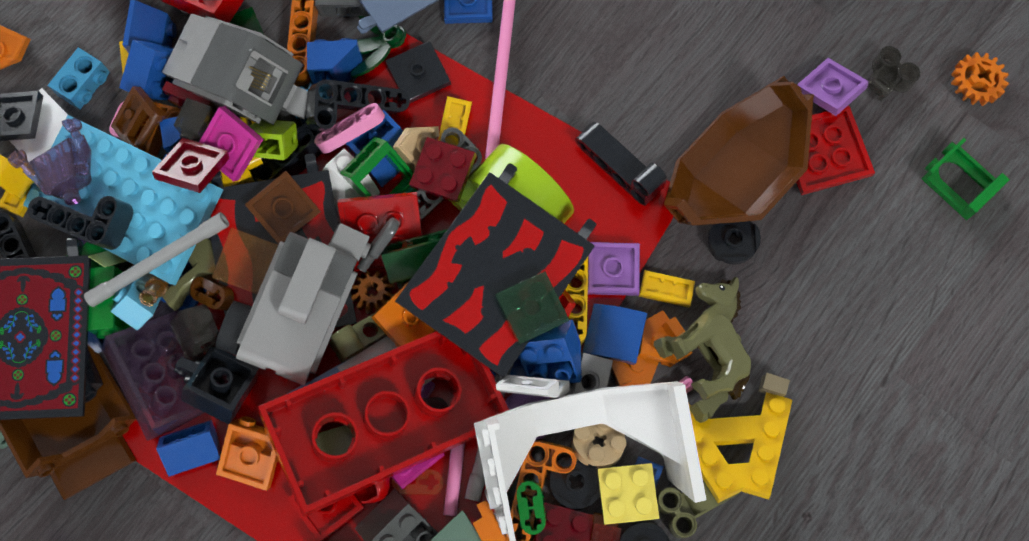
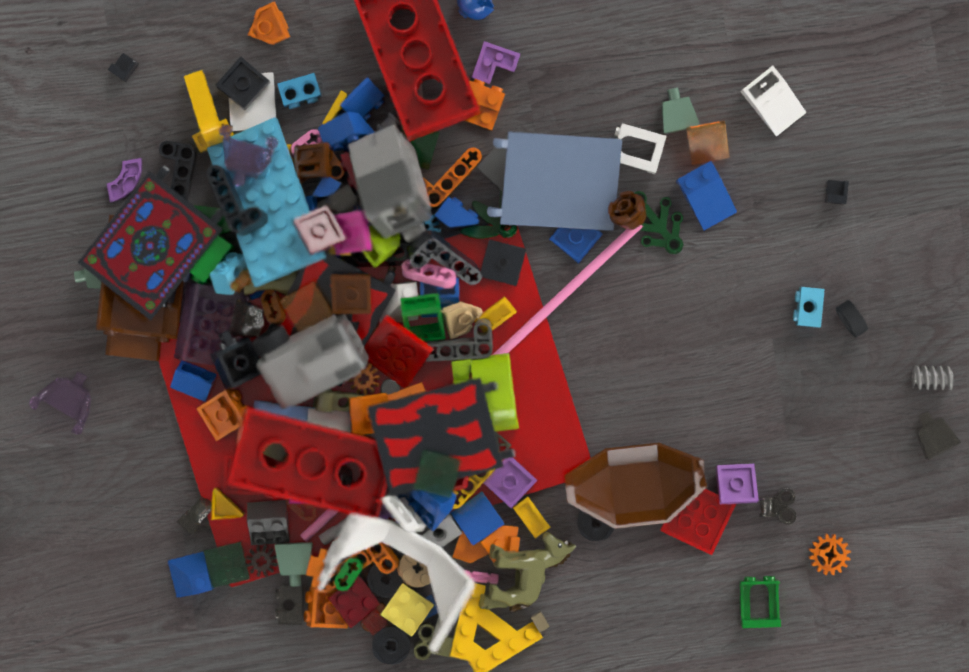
camera: 40 degrees right, 15 degrees up
(106, 258) = (229, 236): yellowish green sticker -> none
(203, 231) = (296, 279): light grey piece -> none
(350, 242) = (371, 345): light grey brick -> none
(379, 243) = (389, 359): dark grey piece -> none
(406, 256) = (403, 381): dark green slope -> none
(443, 169) = (460, 346): dark red plate -> none
(620, 164) = (569, 423): black beam -> none

